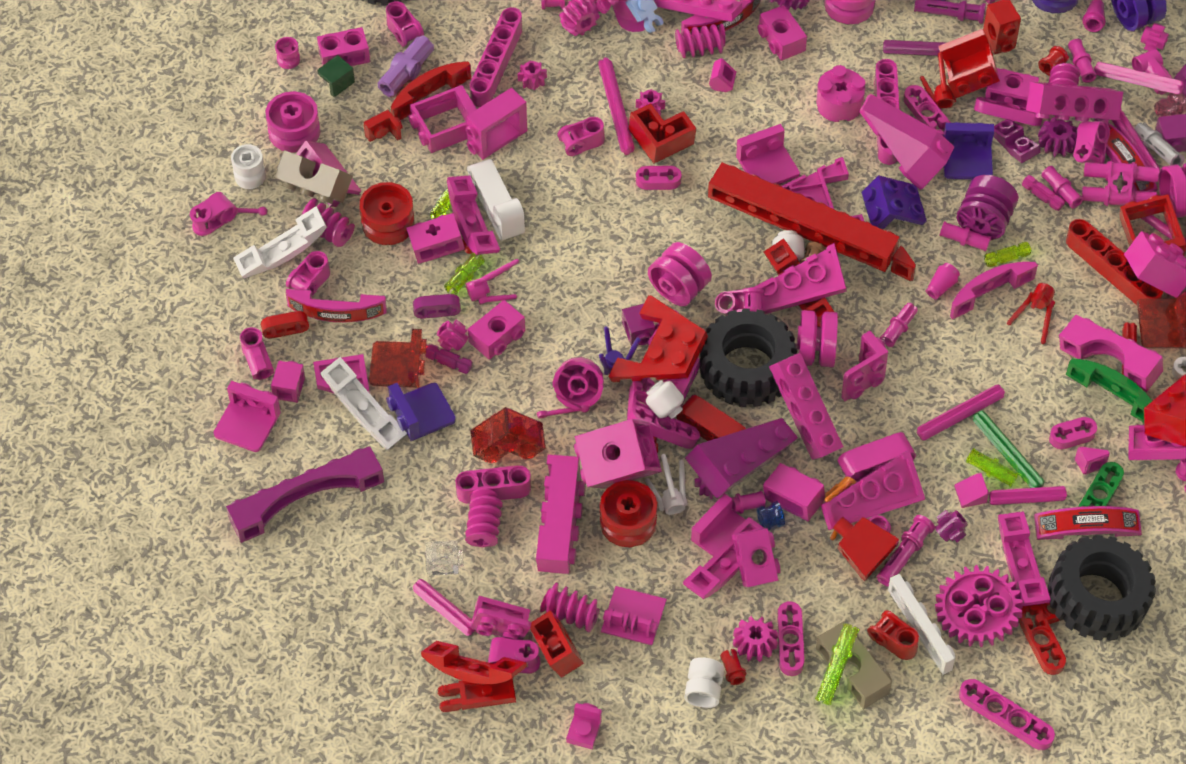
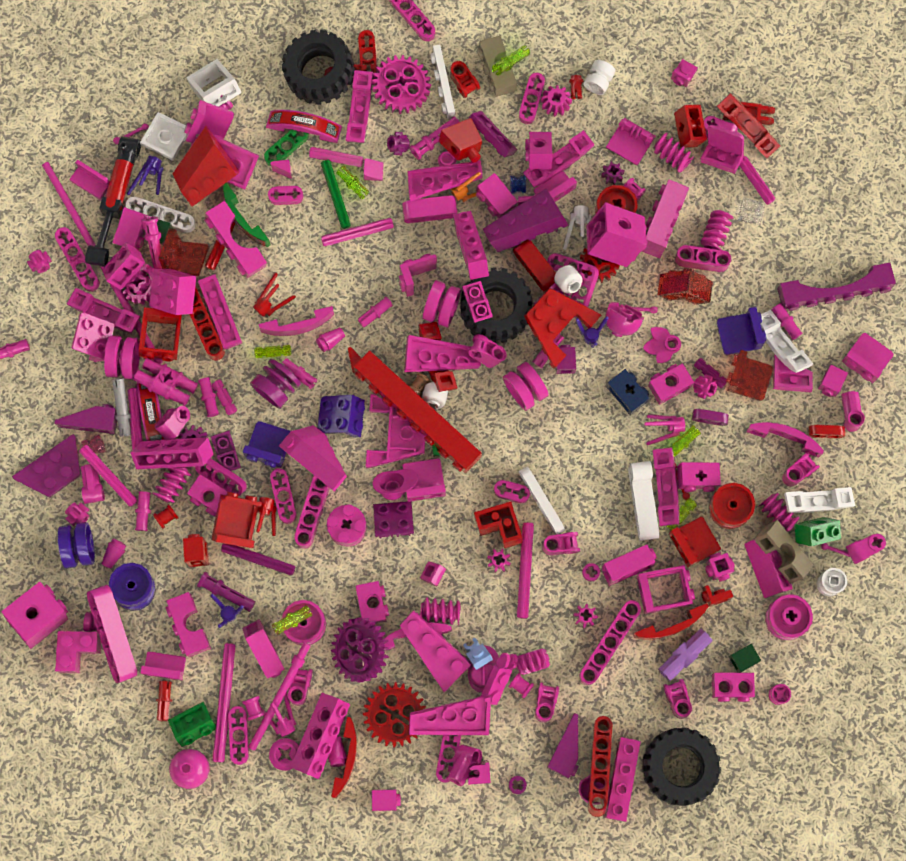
camera: 165 degrees left, 20 degrees up
(273, 217) = (817, 531): none -> green brick
(362, 438) = (786, 321): none -> dark pink pin
(386, 151) = (726, 564): none -> dark pink brick
(425, 172) = (694, 541): none -> red bracket
(522, 375) = (659, 344): none -> dark pink plate
(538, 127) = (595, 568): none -> dark pink bush
(548, 308) = (628, 401): none -> dark blue brick
(611, 549) = (636, 189): none -> dark pink bush
(620, 173) = (542, 501): none -> white beam
(646, 561) = (610, 178): none -> magenta gear
(771, 333) = (477, 301): none -> dark pink slope
(792, 112) = (393, 519): none -> magenta hinge
(801, 143) = (395, 483): none -> dark pink piece
(827, 572) = (493, 134): none -> magenta plate
(1093, 279) = (219, 312): none -> dark pink plate

